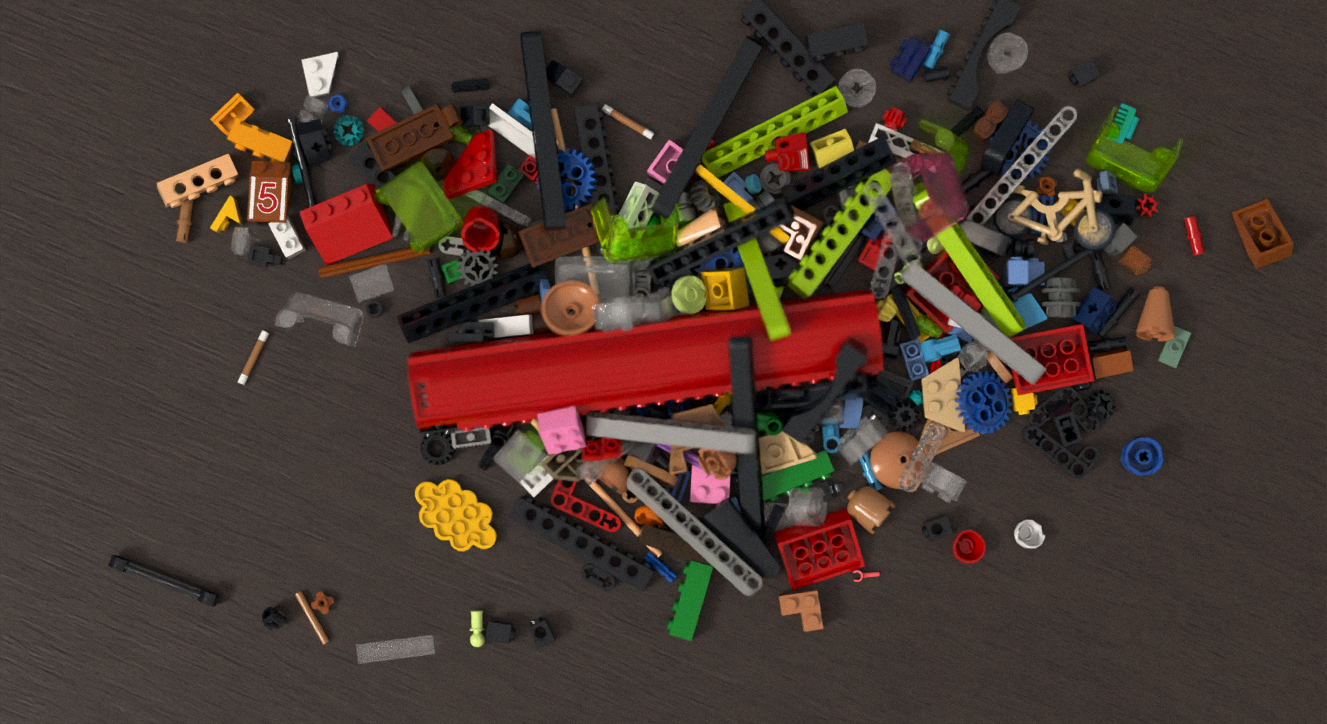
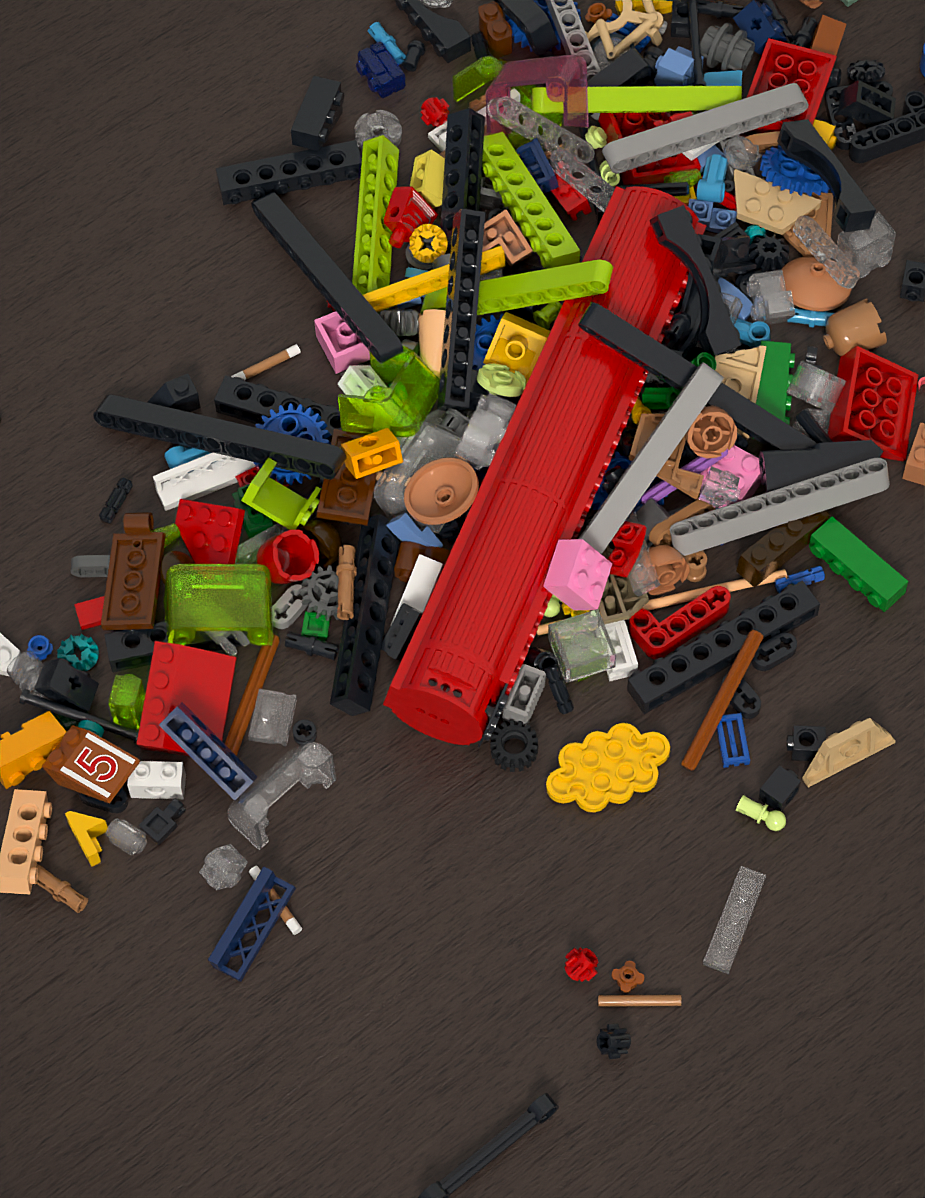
camera: 65 degrees left, 25 degrees down
(225, 347) = (242, 920): none -> dark blue fence
(251, 315) = (223, 867): none -> clear brick
(312, 571) = (581, 964): none -> red gear
(315, 261) = (208, 750): none -> dark blue brick
(326, 187) = (127, 700): none -> clear neon green brick
(475, 116) = (157, 501): black brick -> none
(485, 277) = (346, 572): none -> medium nougat pin
(507, 592) = (720, 733): none -> blue tile
(516, 201) = (279, 501): none -> lime panel
(540, 564) = (722, 700): none -> dark orange axle
(542, 657) = (846, 749): none -> tan wing
(549, 570) = (749, 696): none -> black beam
(581, 252) = (372, 453): none -> light orange brick
(647, 516) = (729, 555): orange hair -> none
(684, 486) = (720, 488): none -> clear brick
(782, 174) = (439, 243): none -> yellow gear
(891, 216) = (563, 145): clear beam -> none
(998, 400) = (805, 145): none -> black arch

